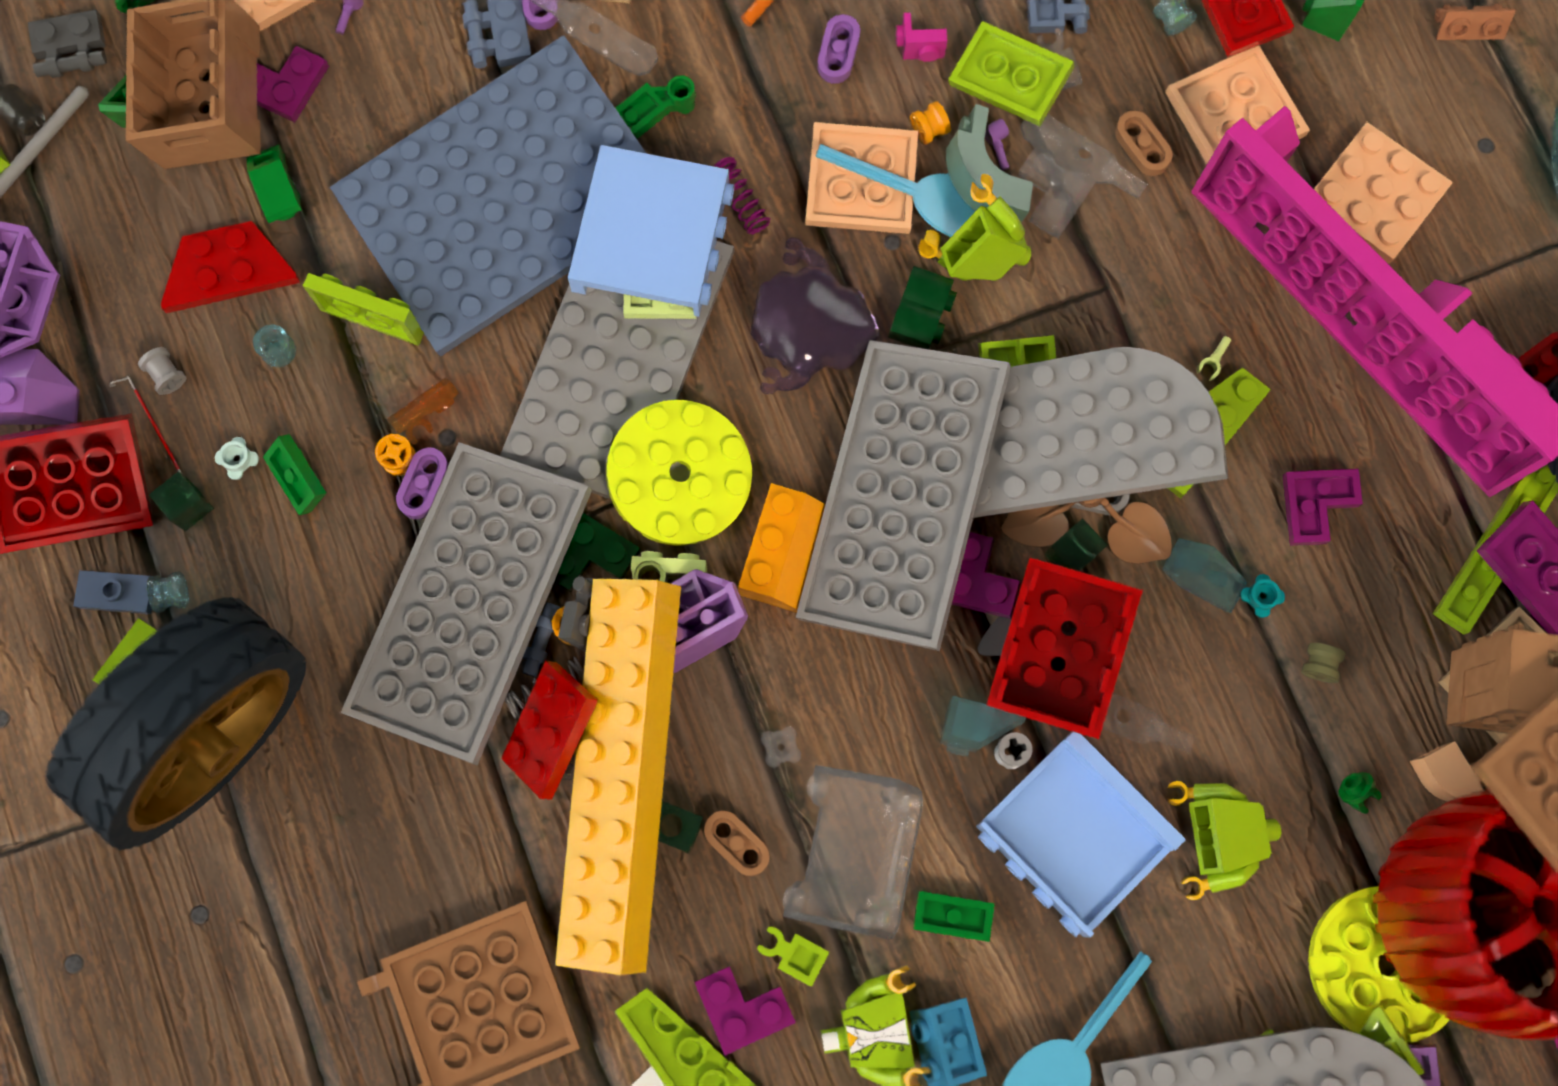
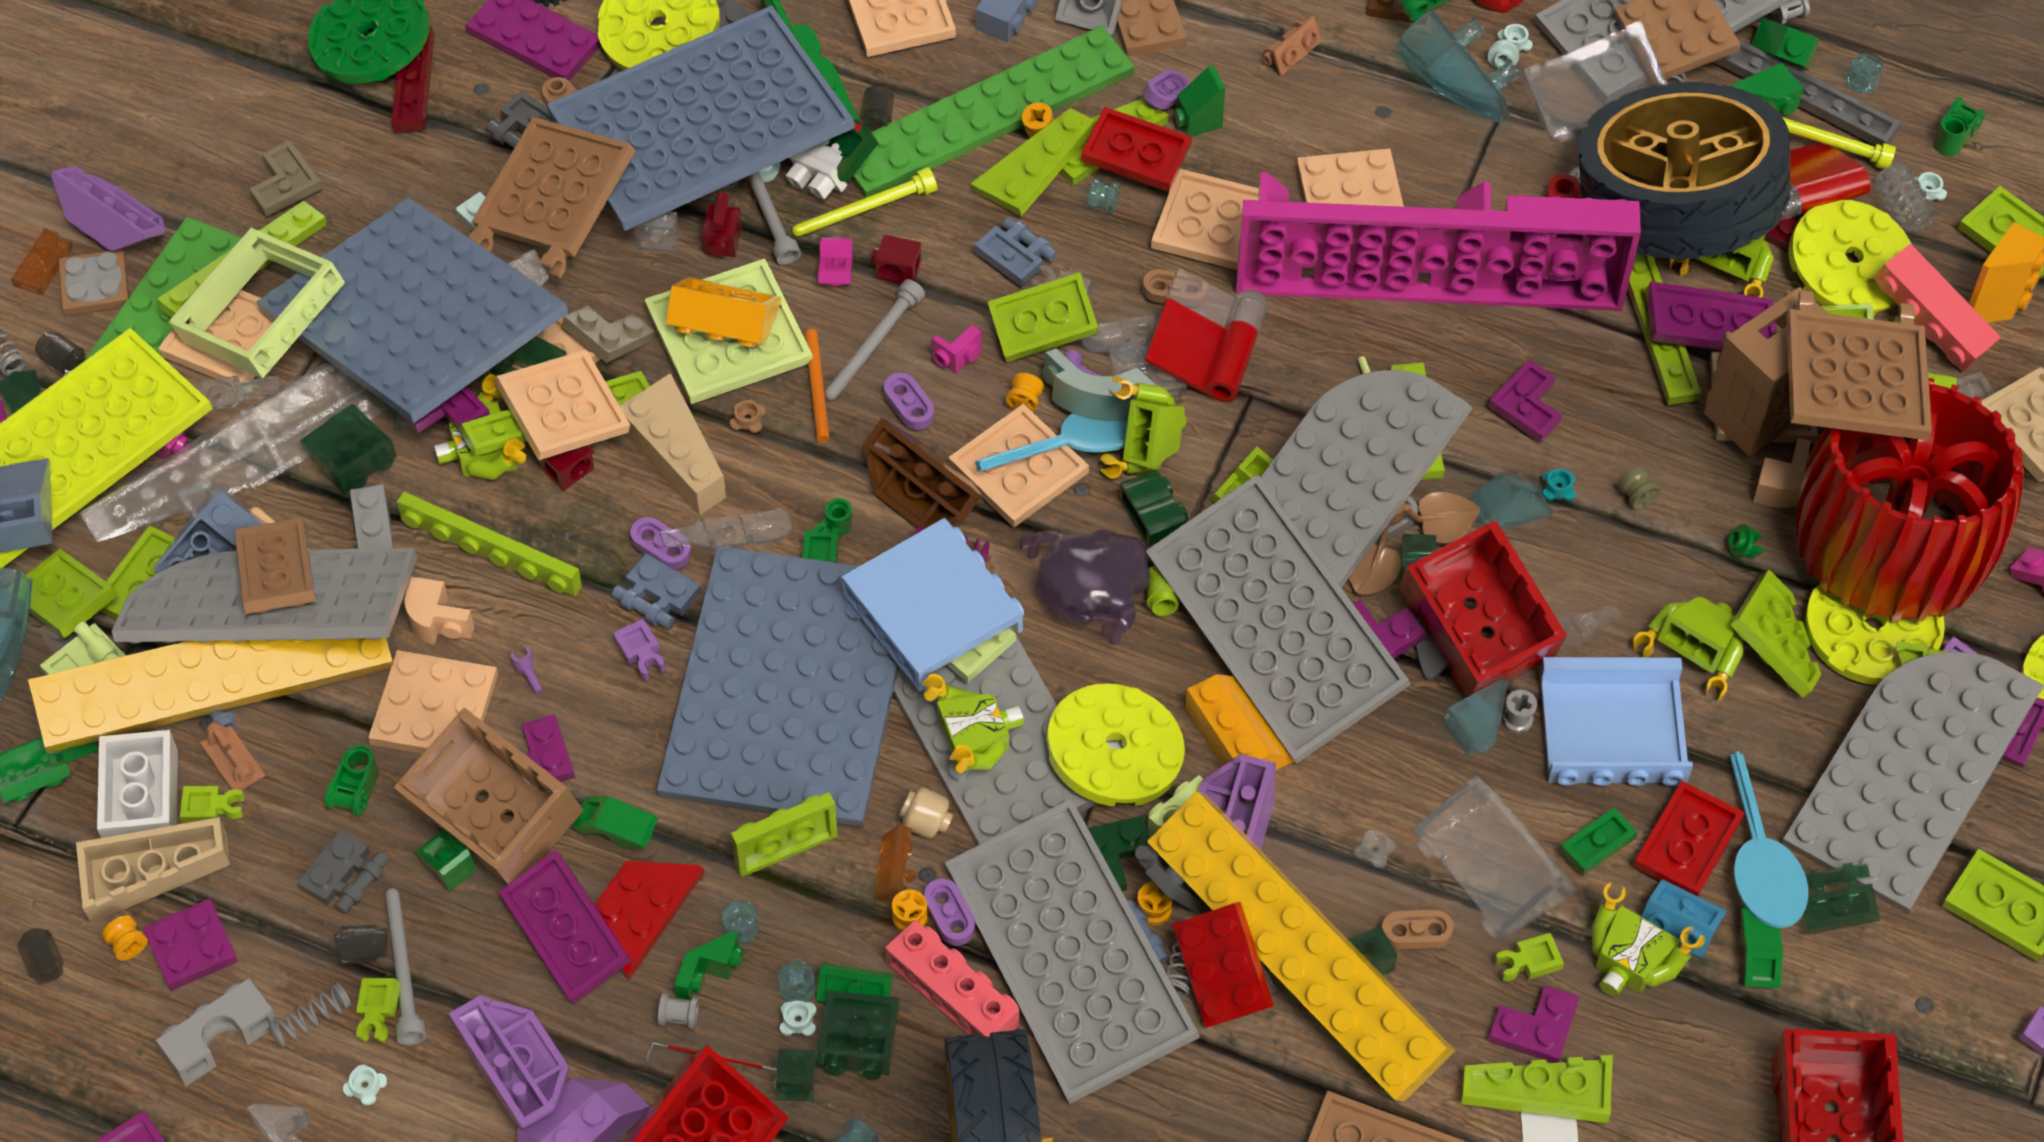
camera: 45 degrees left, 20 degrees down
(154, 230) = (565, 926): none -> magenta plate
(231, 358) = (712, 958): none -> green slope
(254, 512) = (857, 1034): none -> clear green plate
(255, 425) = (797, 974): none -> clear light blue wheel
(360, 543) = (950, 983): none -> coral brick
(436, 61) = (639, 646): none -> medium lavender plate
(488, 389) = (925, 812): none -> tan head
(581, 358) = (972, 724): none -> lime torso
(772, 117) = (916, 478): none -> reddish brown wedge
(845, 384) = (1160, 595): none -> lime cone
(1026, 988) = (1689, 839): none -> red plate
(1121, 204) = (1206, 335): none -> red door
(1291, 895) = (1775, 634): none -> lime plate

